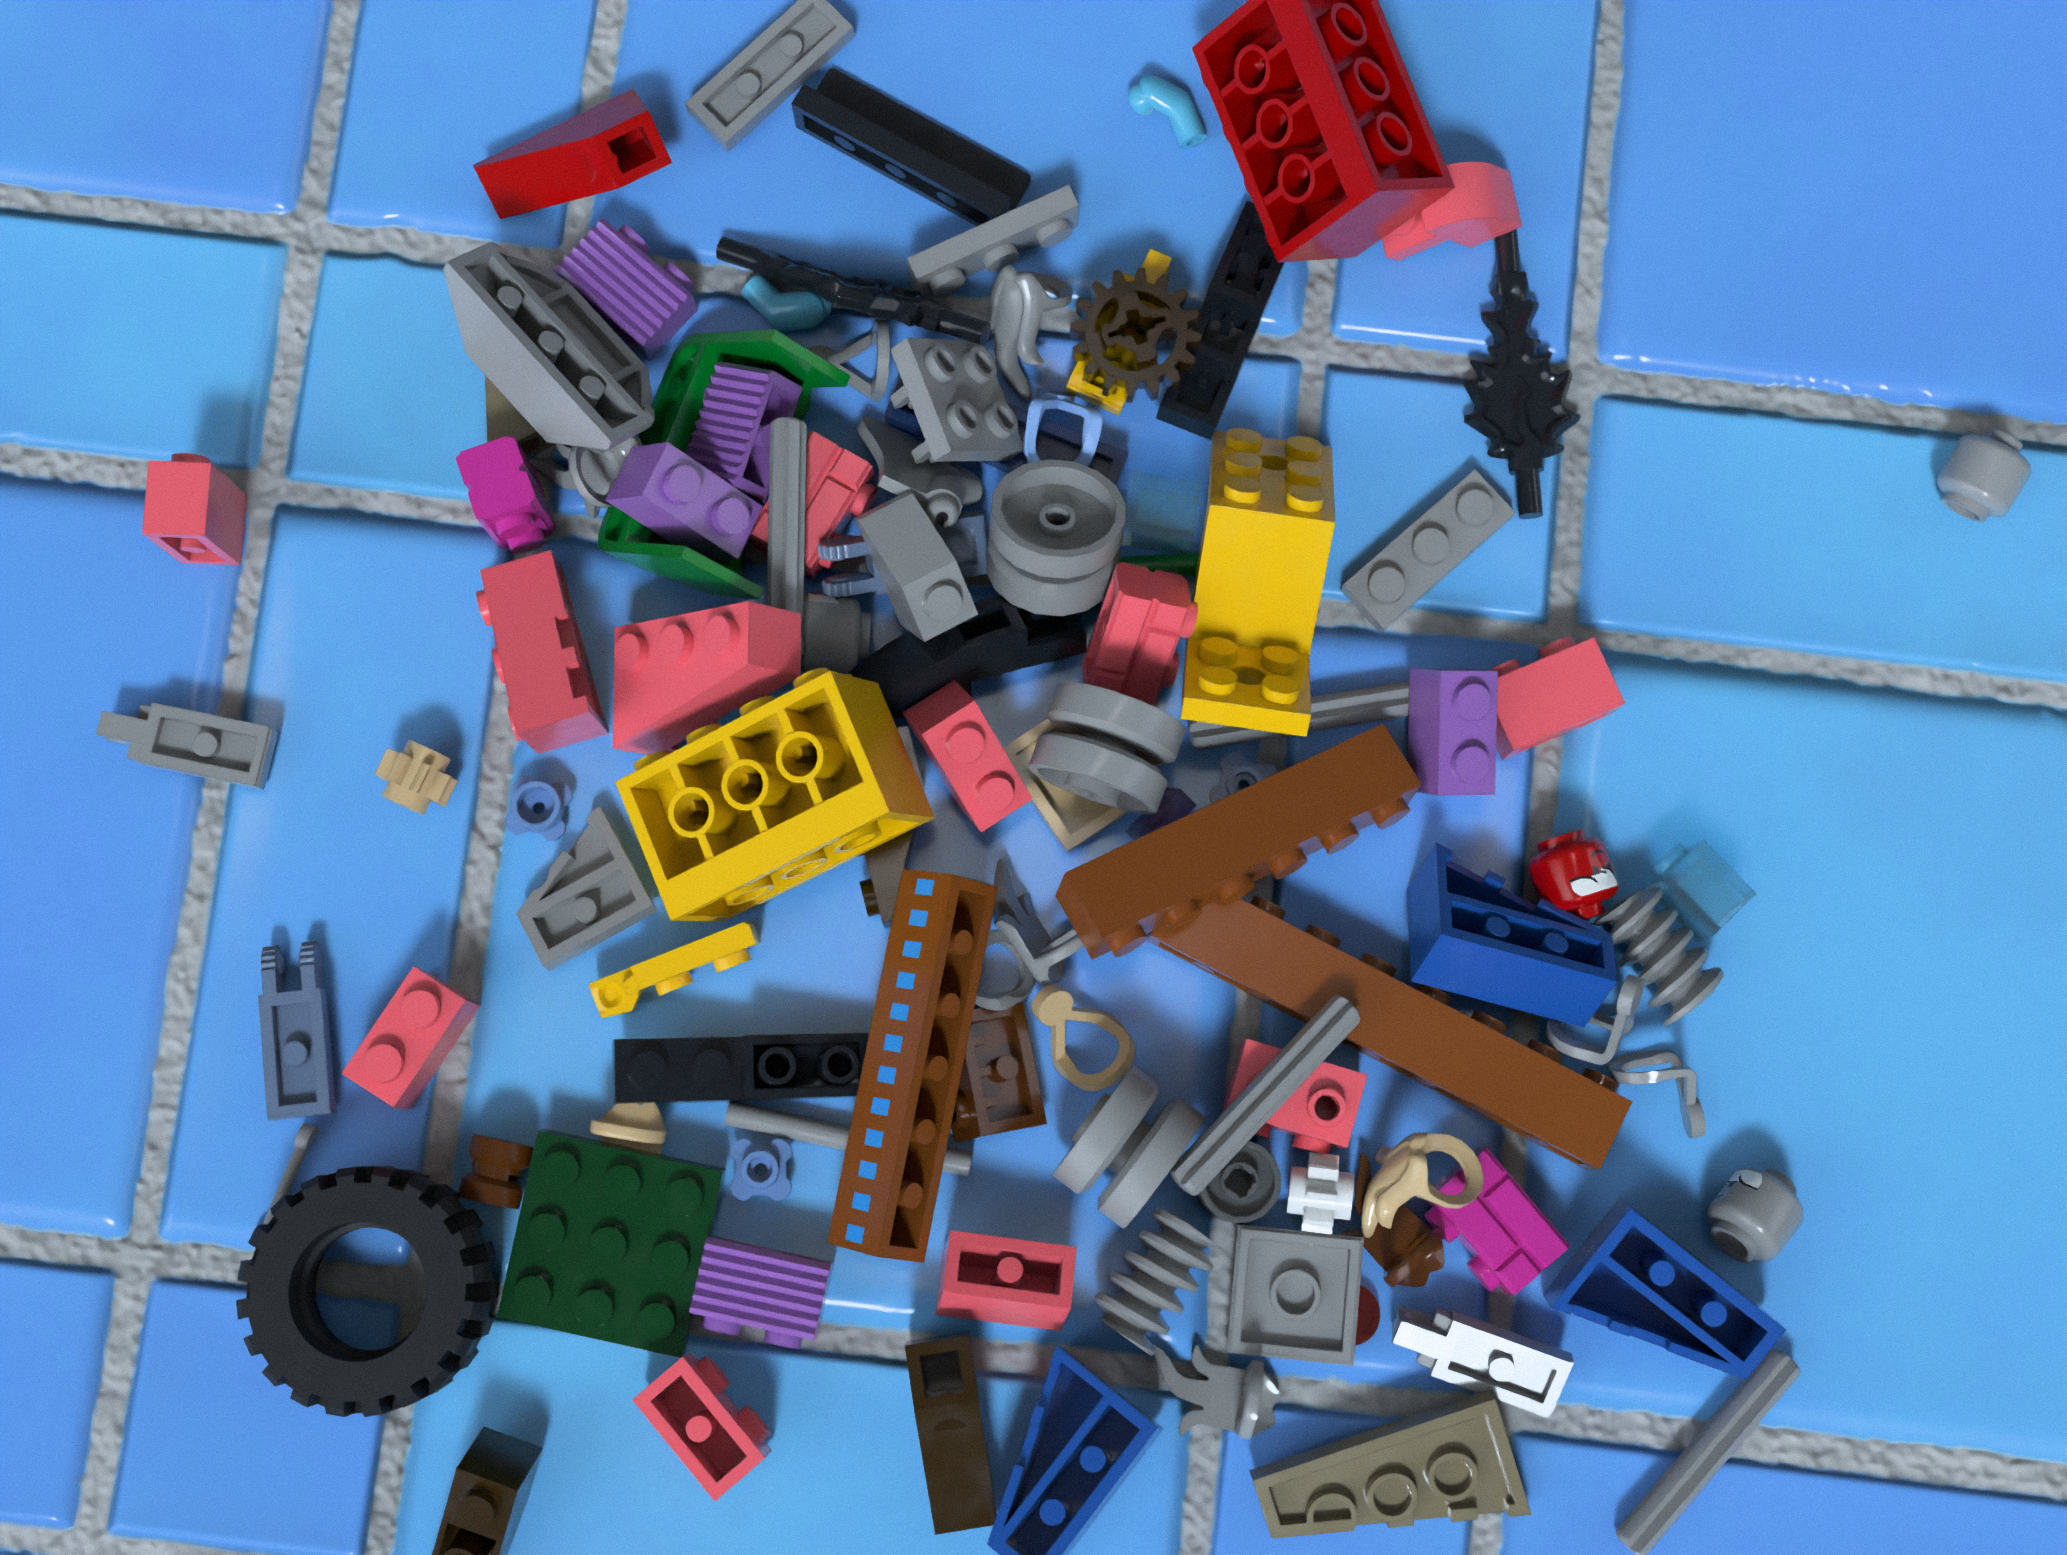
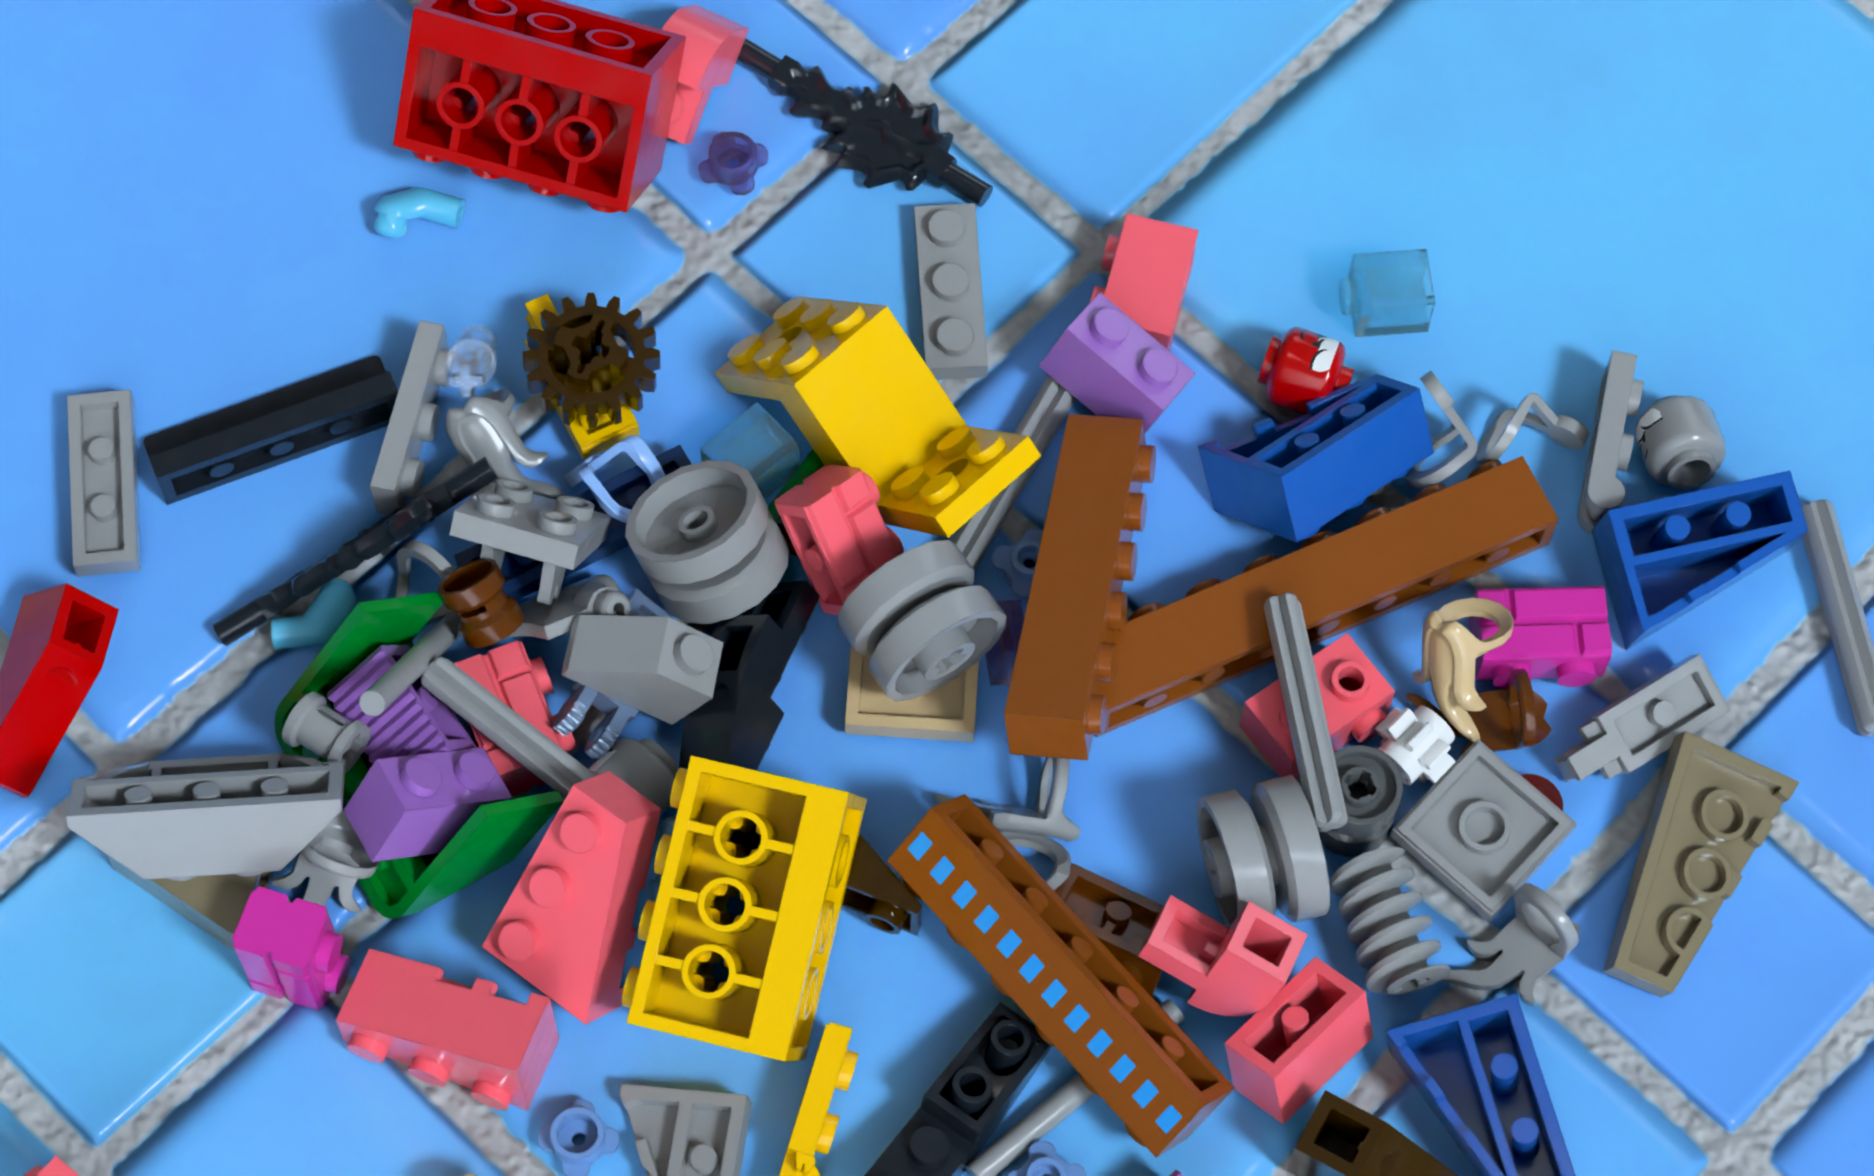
camera: 50 degrees left, 15 degrees down
(628, 288) = (190, 721): medium lavender brick -> none
(679, 387) = (325, 731): none -> light grey bush
(777, 405) = (410, 666): none -> light grey bar
(872, 407) = (481, 603): none -> reddish brown wheel
(967, 755) = (832, 742): coral brick -> none
(1015, 1187) = (1229, 968): none -> coral brick
(1054, 1006) = (1098, 840): tan piece -> none
(1068, 248) = (472, 360): none -> clear axle
(1228, 327) = (621, 265): black slope -> none
(1407, 289) = (733, 147): none -> clear purple plate
(1661, 952) = (1418, 352): light grey piece -> none
(1705, 1160) = (1609, 446): none -> light grey plate

